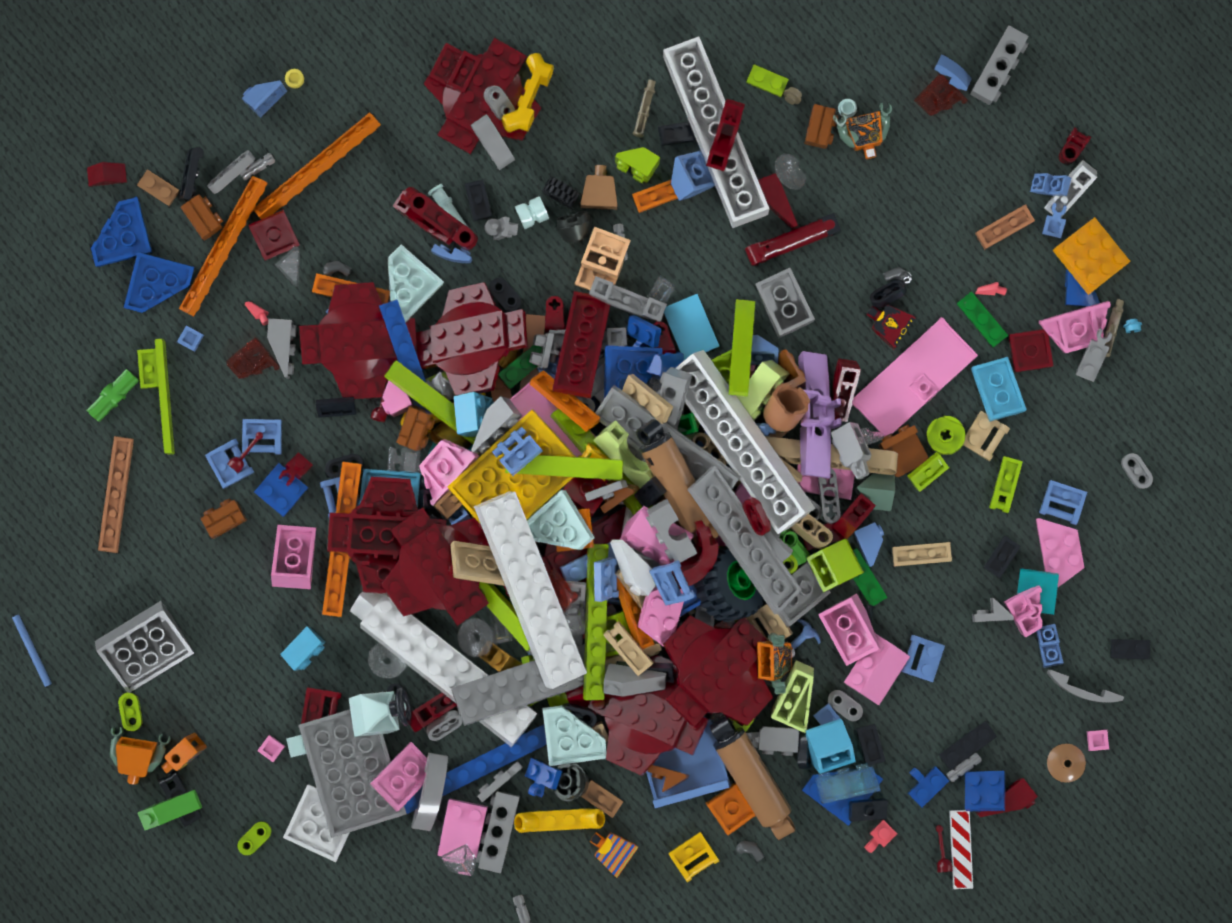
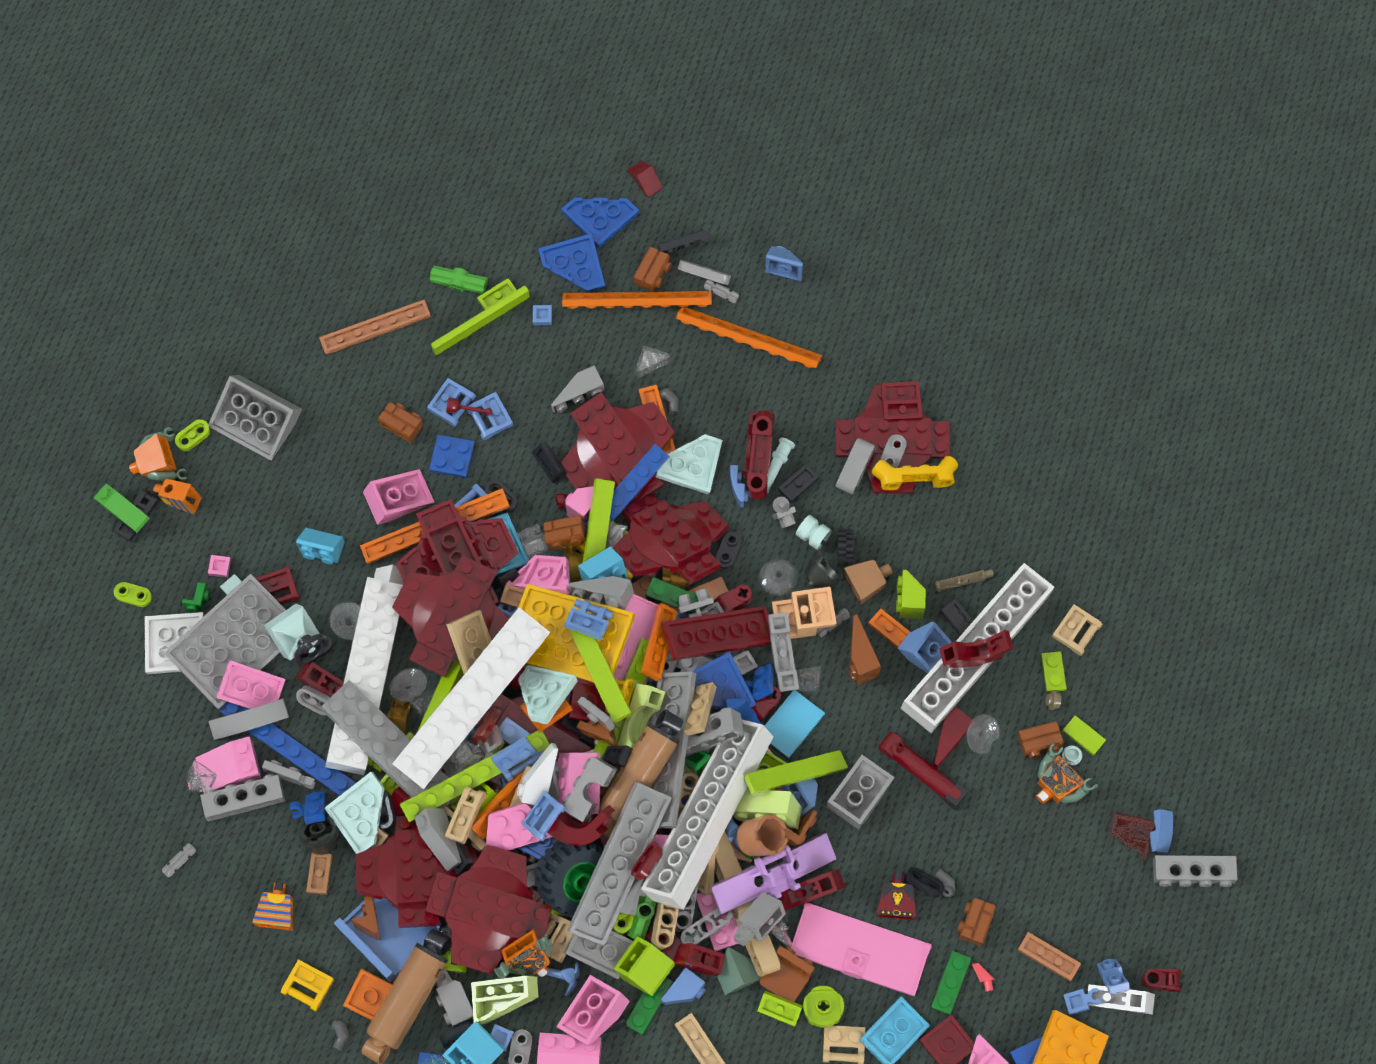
camera: 65 degrees right, 15 degrees down
(31, 650) = (205, 330): medium blue bar -> none
(158, 188) = (657, 223): medium nougat plate -> none
(245, 364) = (546, 369): clear red slope -> none
(257, 312) = (596, 356): coral bar -> none
(274, 235) = (669, 333): dark red plate -> none
(291, 777) = (201, 596): none -> green bracket
(294, 78) = (815, 280): light yellow tile -> none
(296, 467) = (478, 457): dark red plate -> none
(556, 274) = (780, 585): none -> clear dish
(559, 820) = (279, 844): yellow plate -> none
(669, 235) = (863, 661): none -> dark orange slope
(736, 41) = (1072, 625): none -> tan plate
(836, 88) = (1084, 735): none -> lime tile
(944, 269) = (976, 922): none -> dark orange brick

